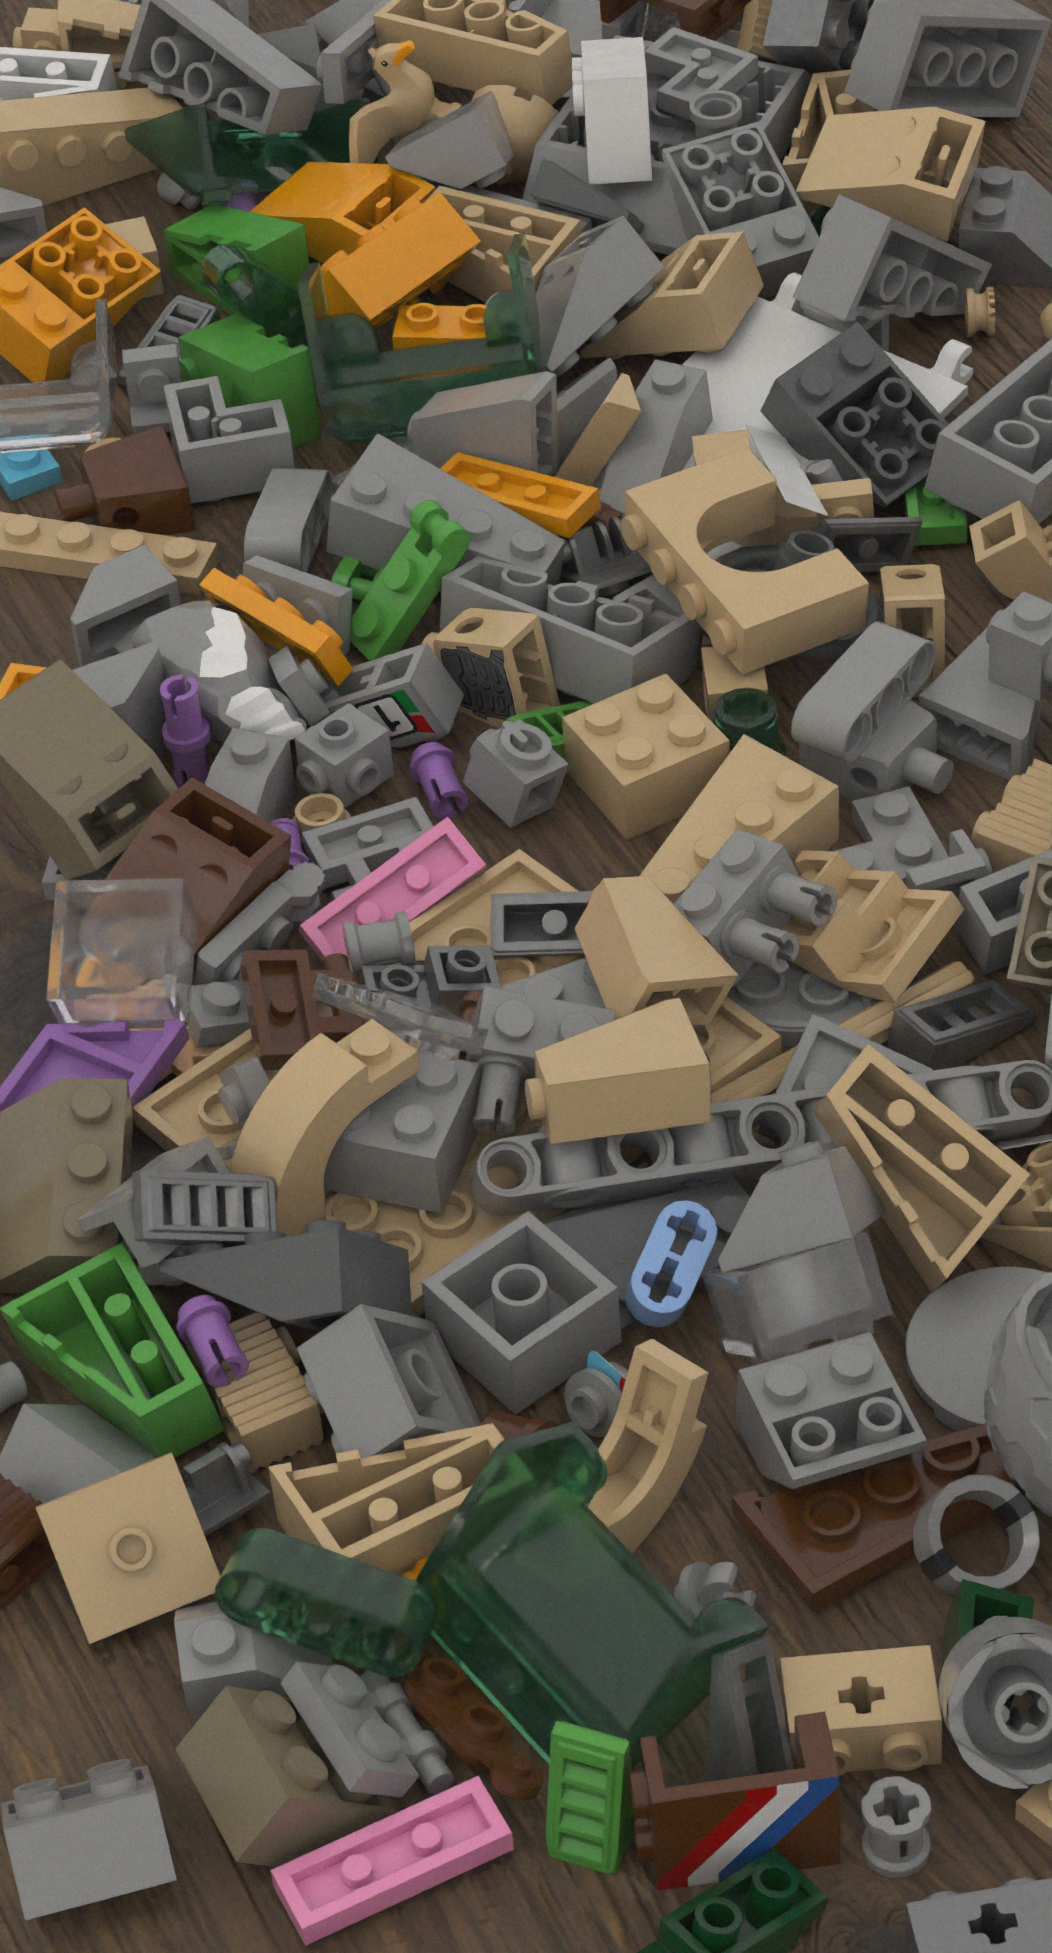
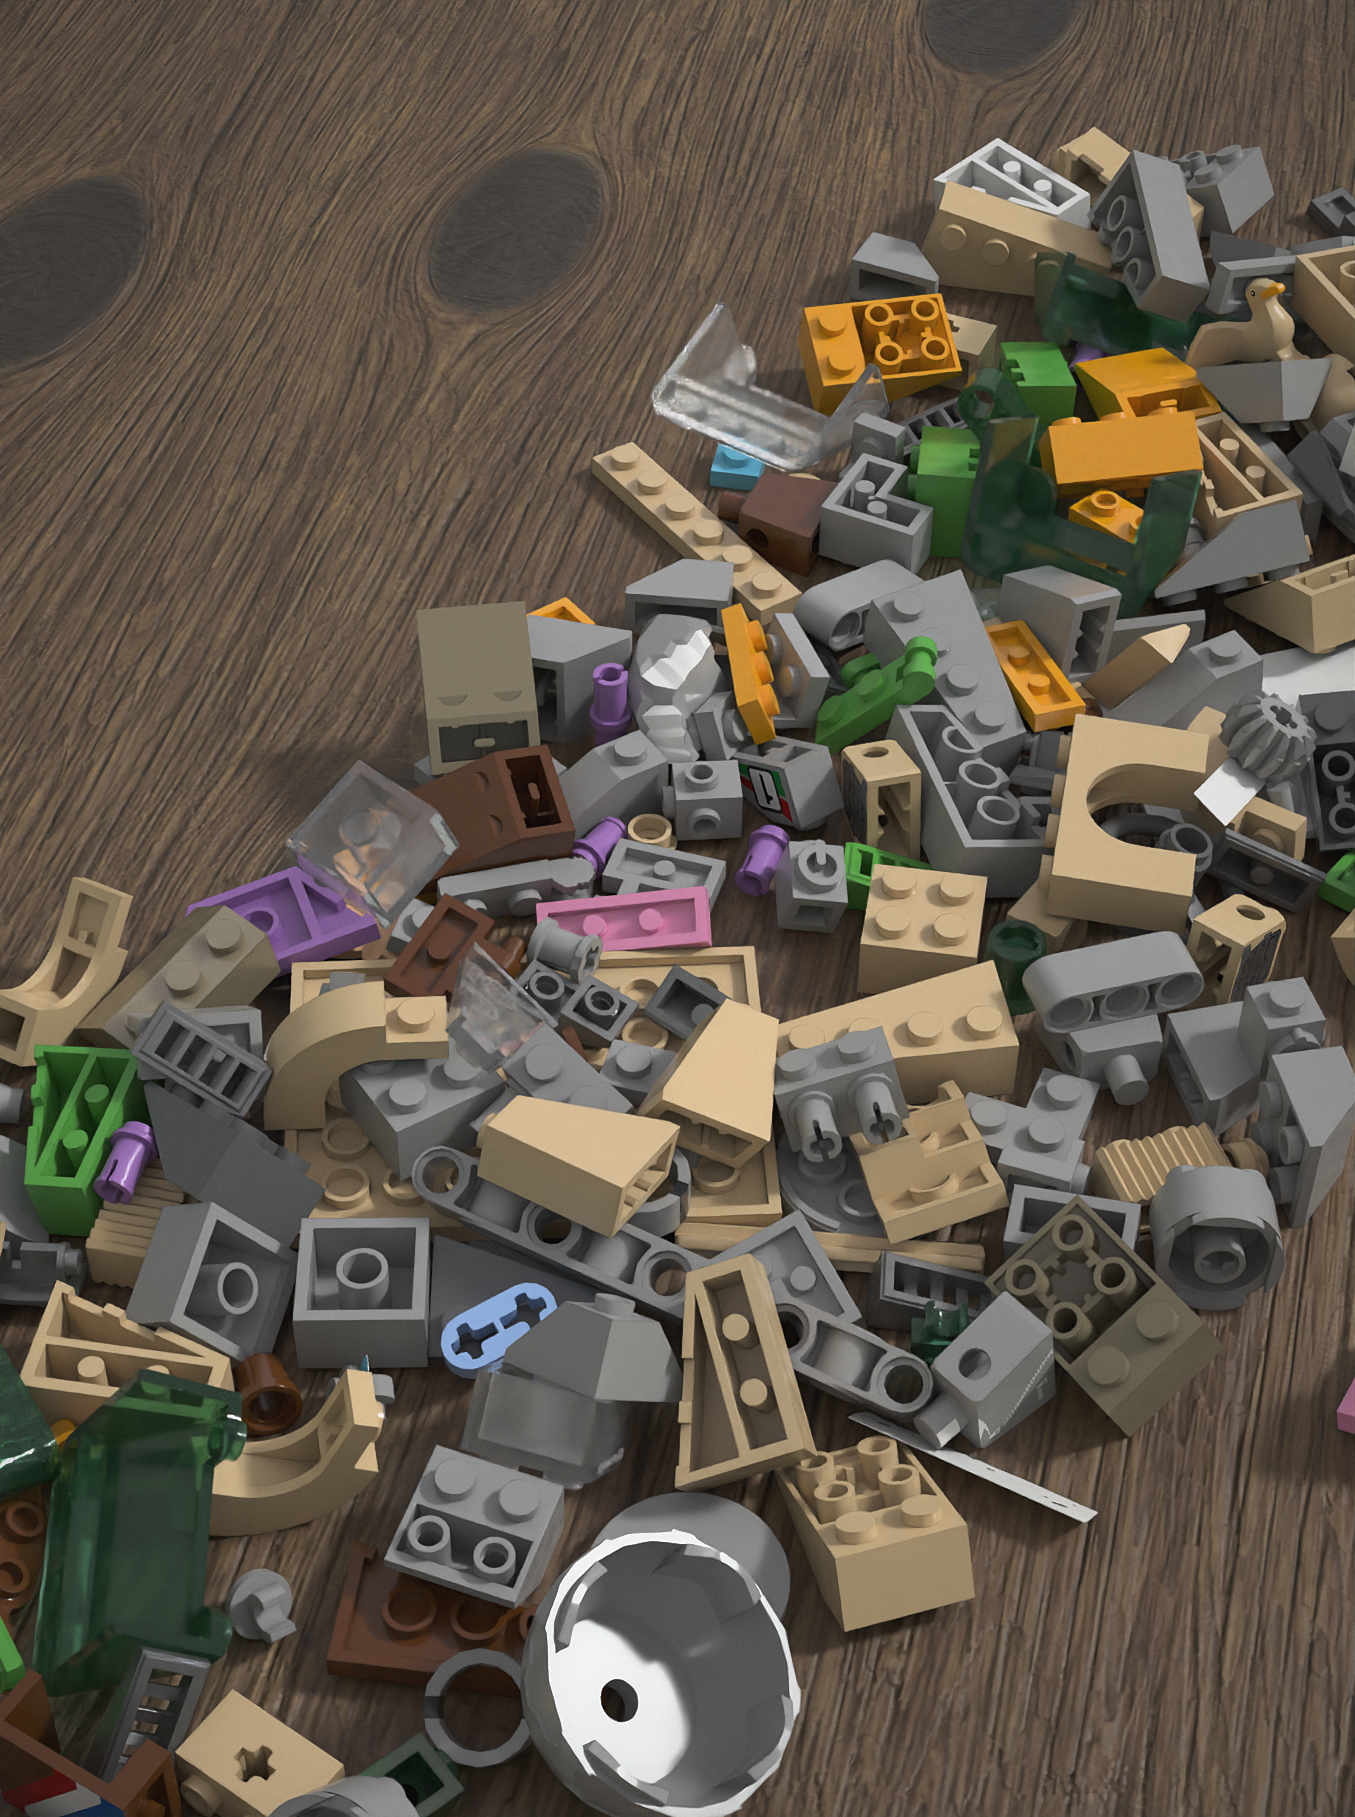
camera: 35 degrees right, 0 degrees up
(783, 426) = (1267, 736): none -> light grey gear
(1019, 1034) = (936, 1332): none -> clear green plate

